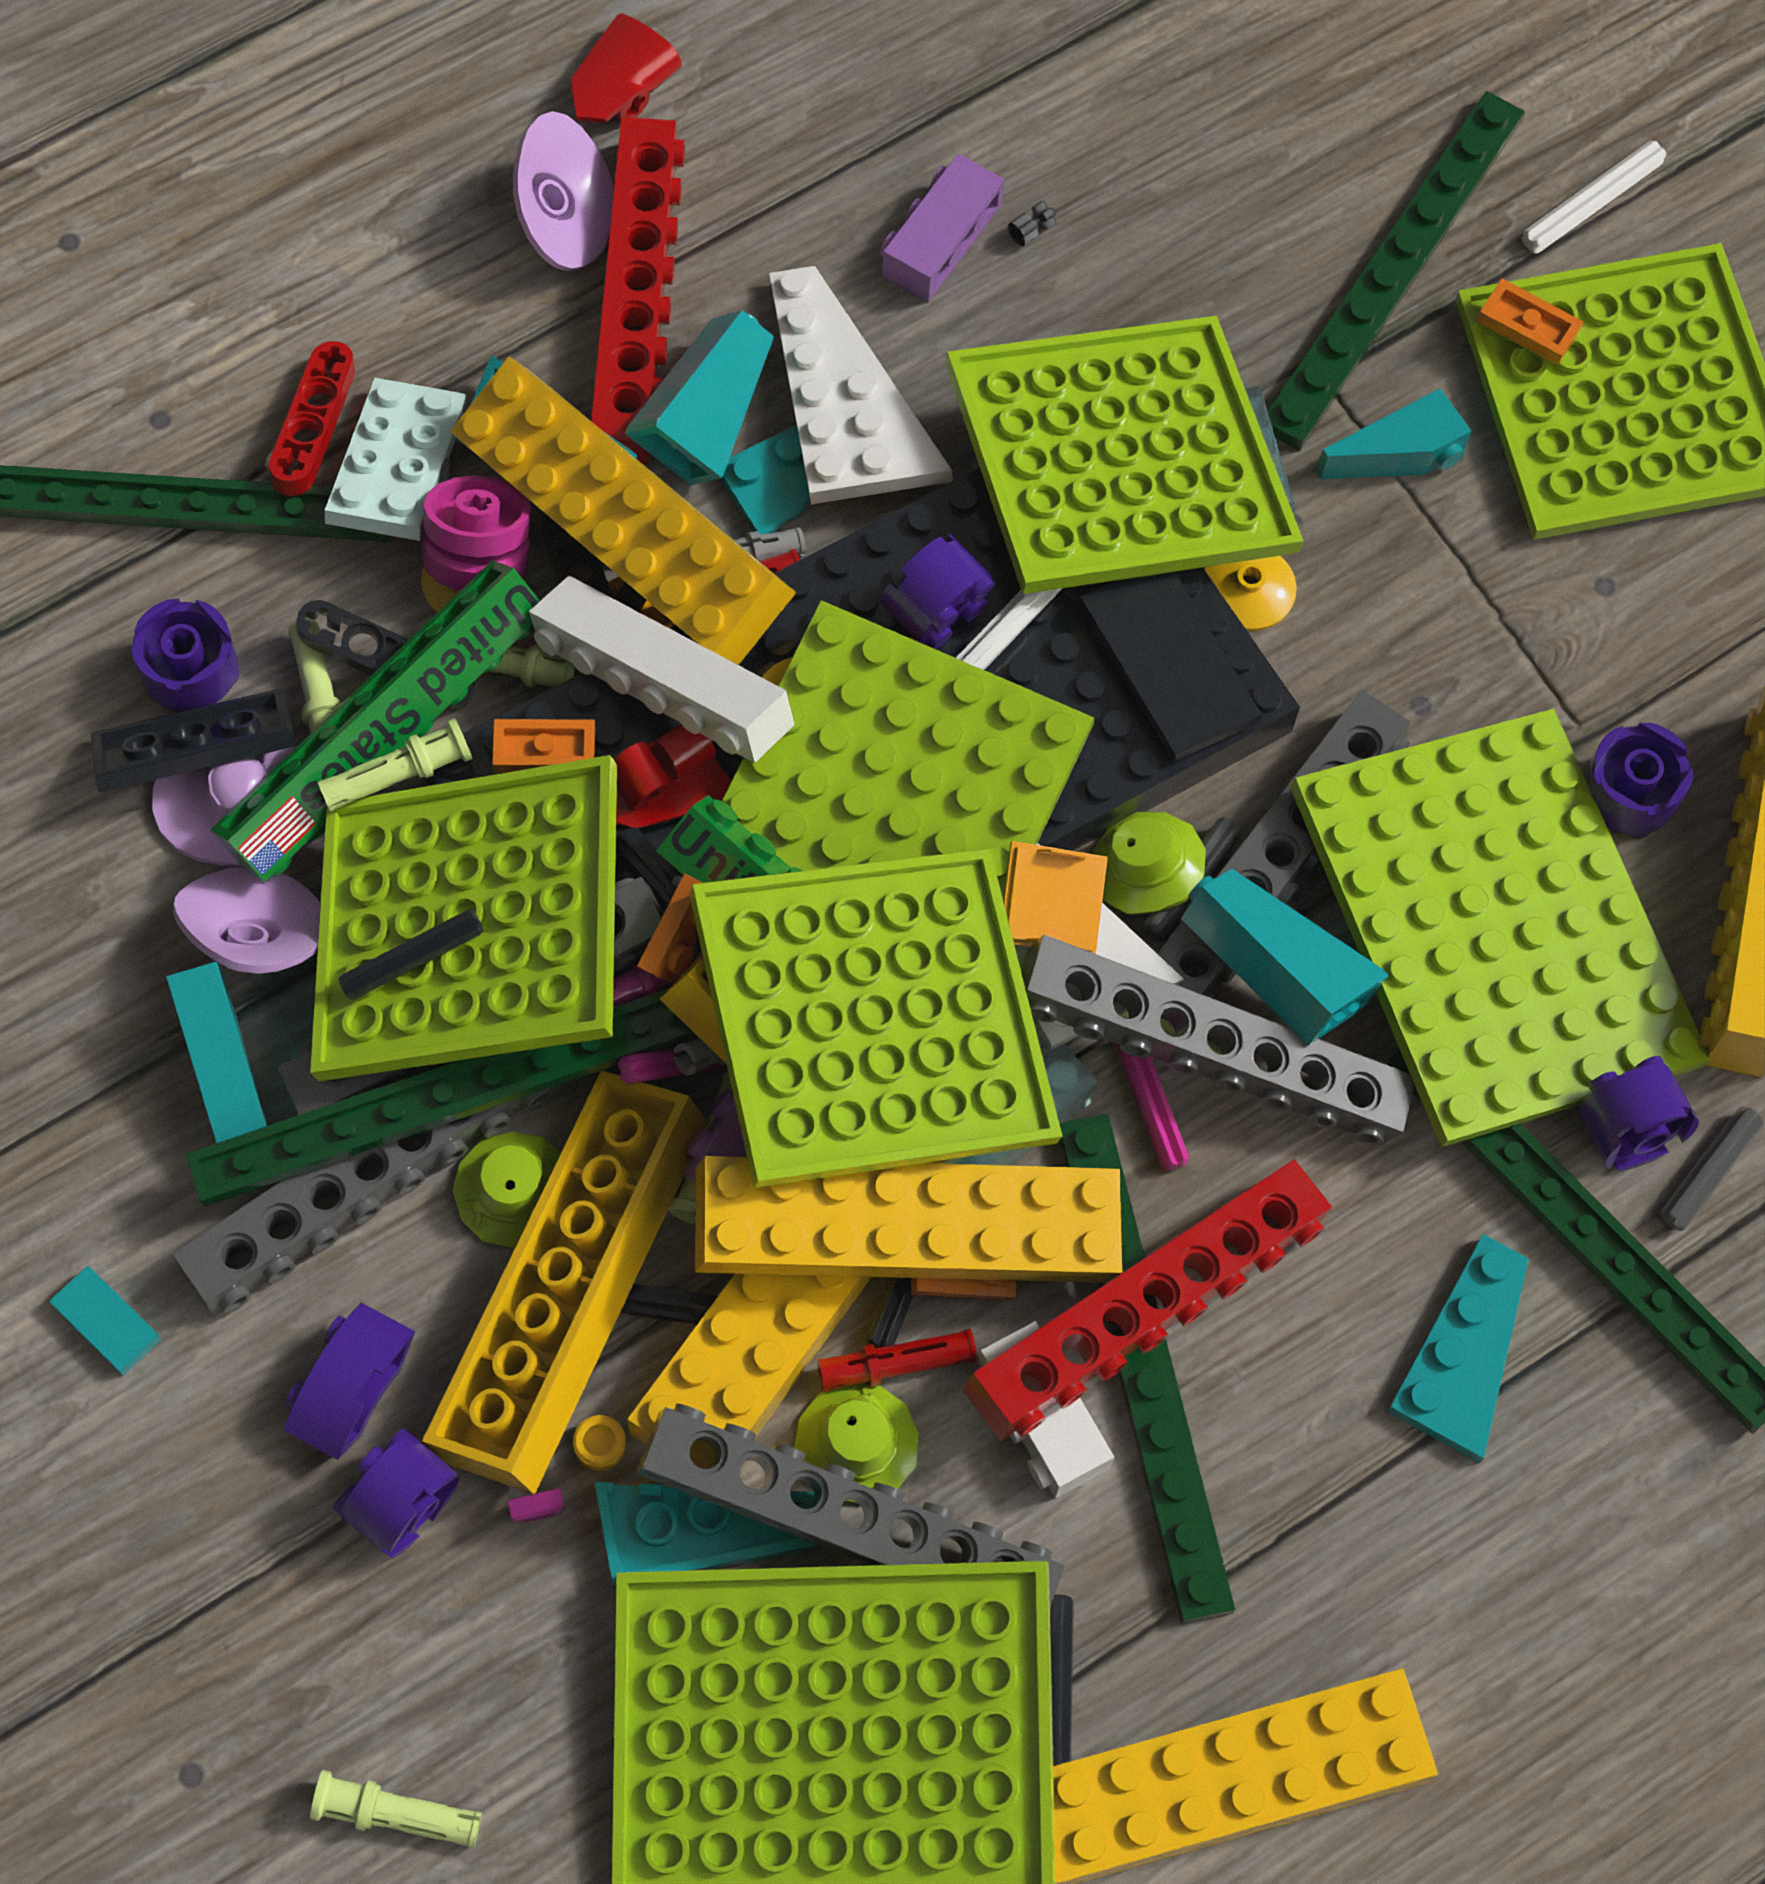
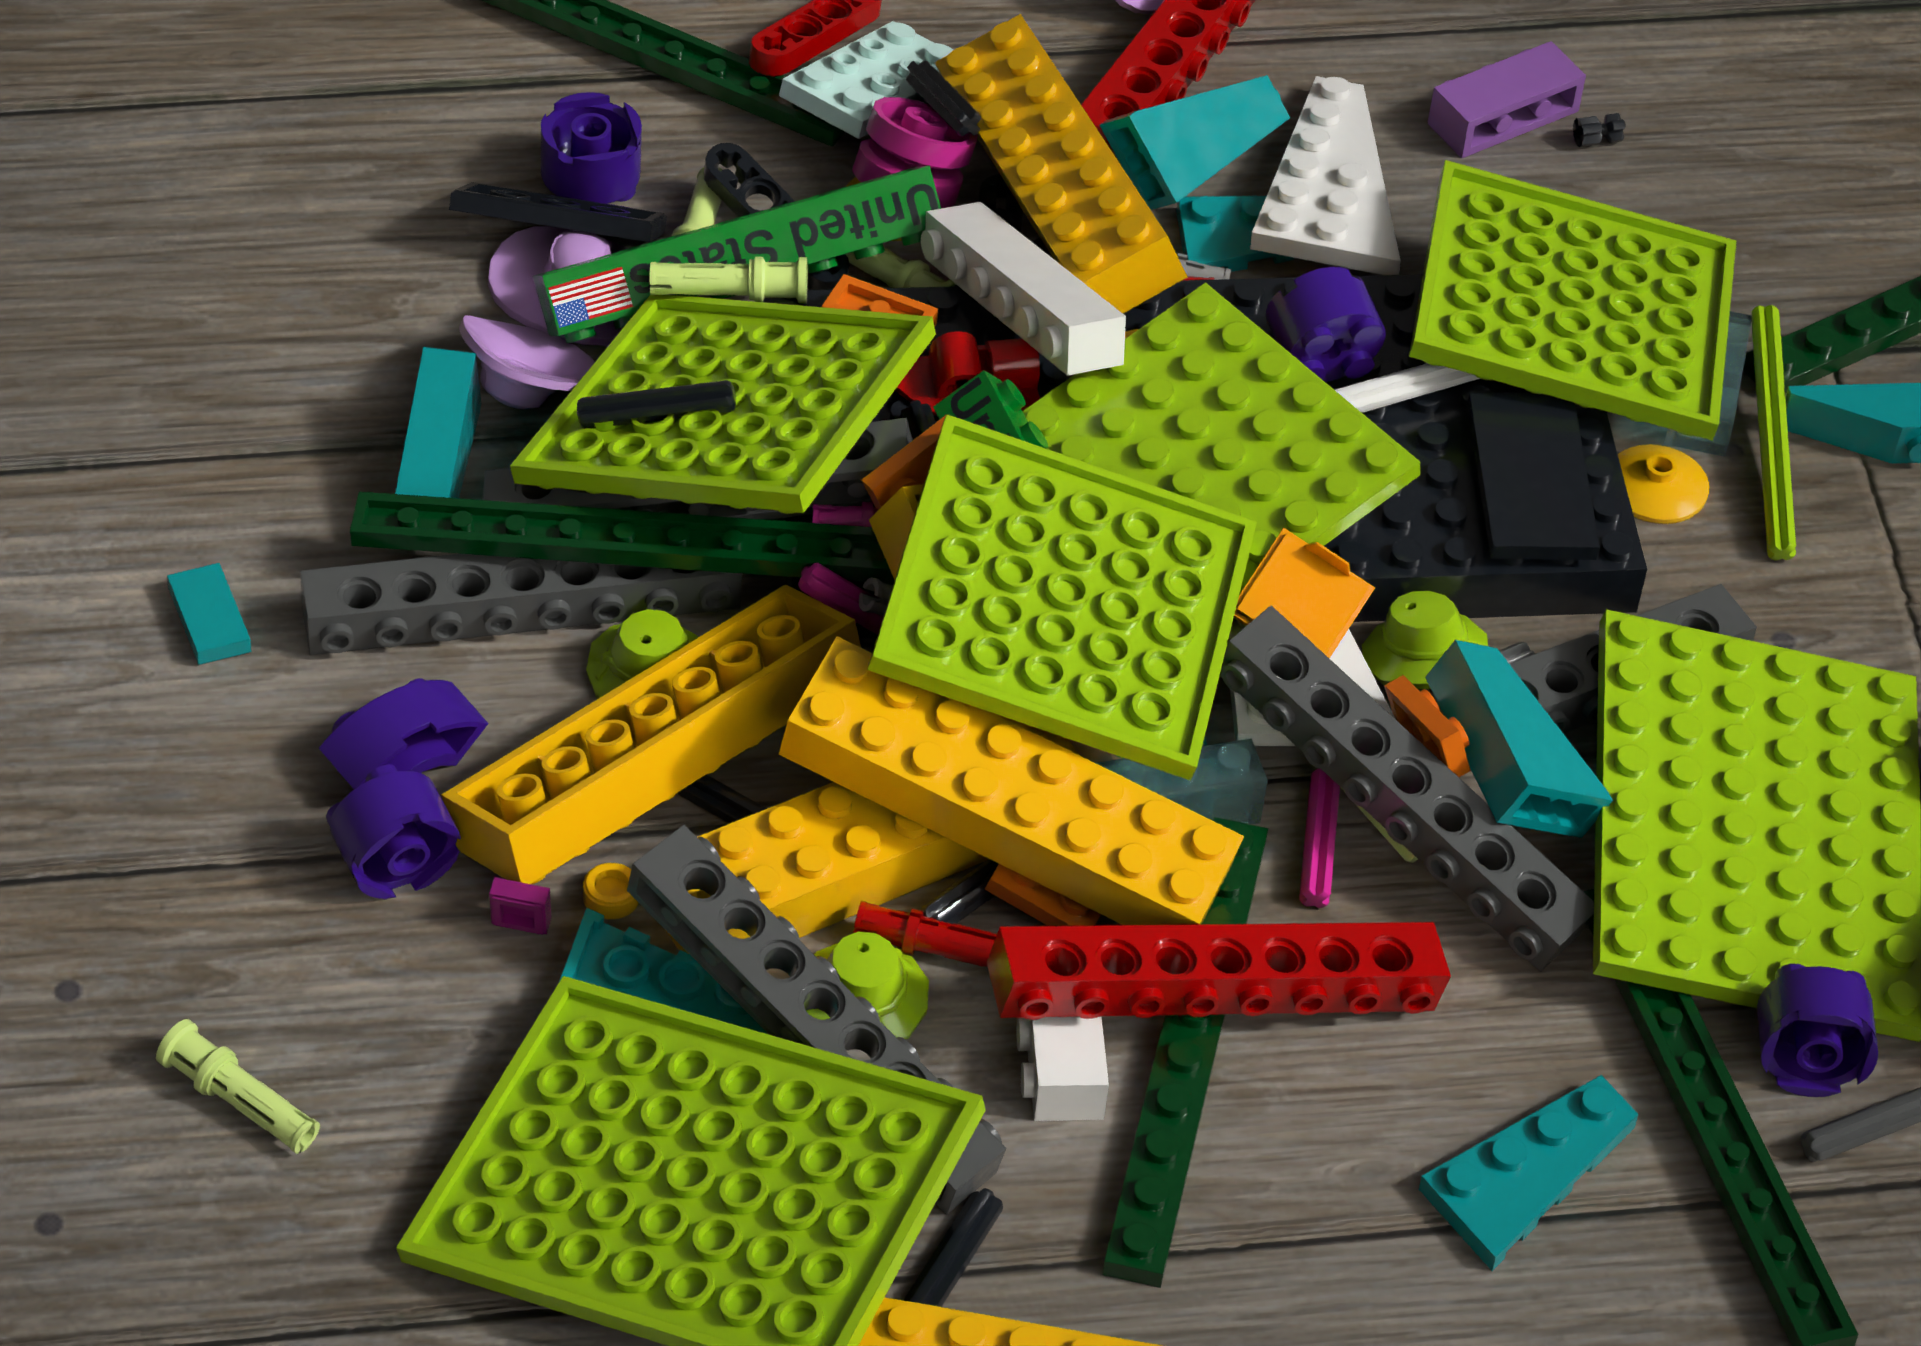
camera: 25 degrees right, 20 degrees down
(481, 473) = (943, 98): none -> black axle
(1196, 964) = (1422, 718): none -> orange plate
(1326, 497) = (1773, 433): none -> lime axle

